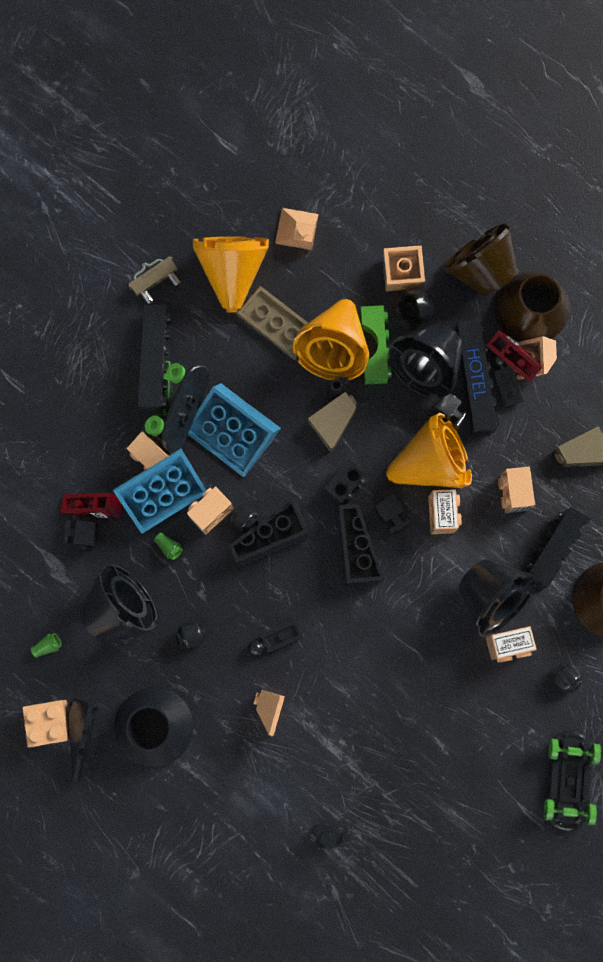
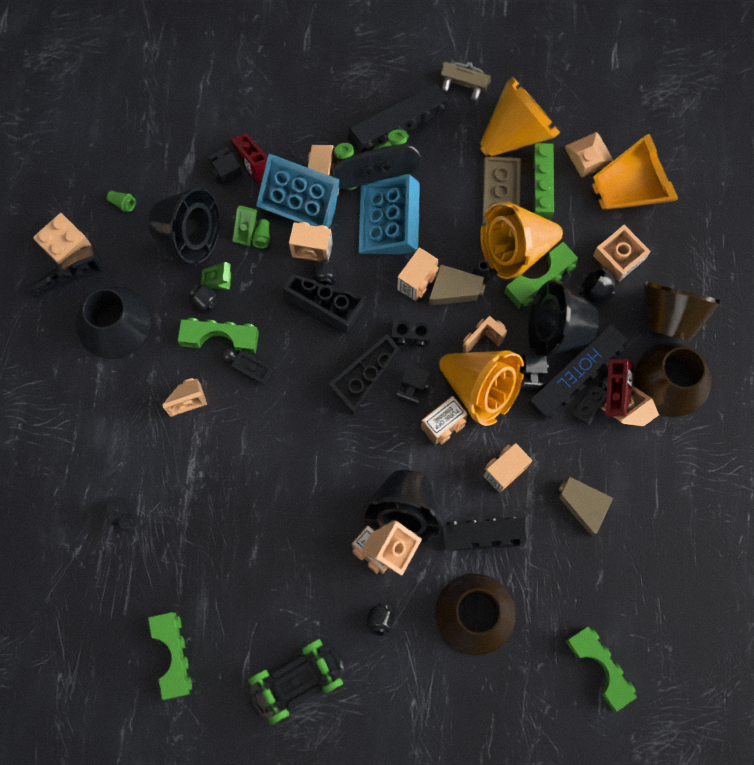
camera: 55 degrees right, 5 degrees down
(151, 555) = (245, 225): none -> bright green slope
(179, 611) = (217, 276): none -> bright green slope
(216, 664) = (195, 333): none -> bright green arch
(283, 273) = (543, 180): none -> bright green arch
(303, 442) = (418, 274): none -> light nougat brick
(350, 211) = (634, 179): none -> light orange cone
(397, 416) = (492, 329): none -> light nougat bracket
(455, 861) = (175, 681): none -> bright green arch
(525, 628) = (392, 546): none -> light nougat slope

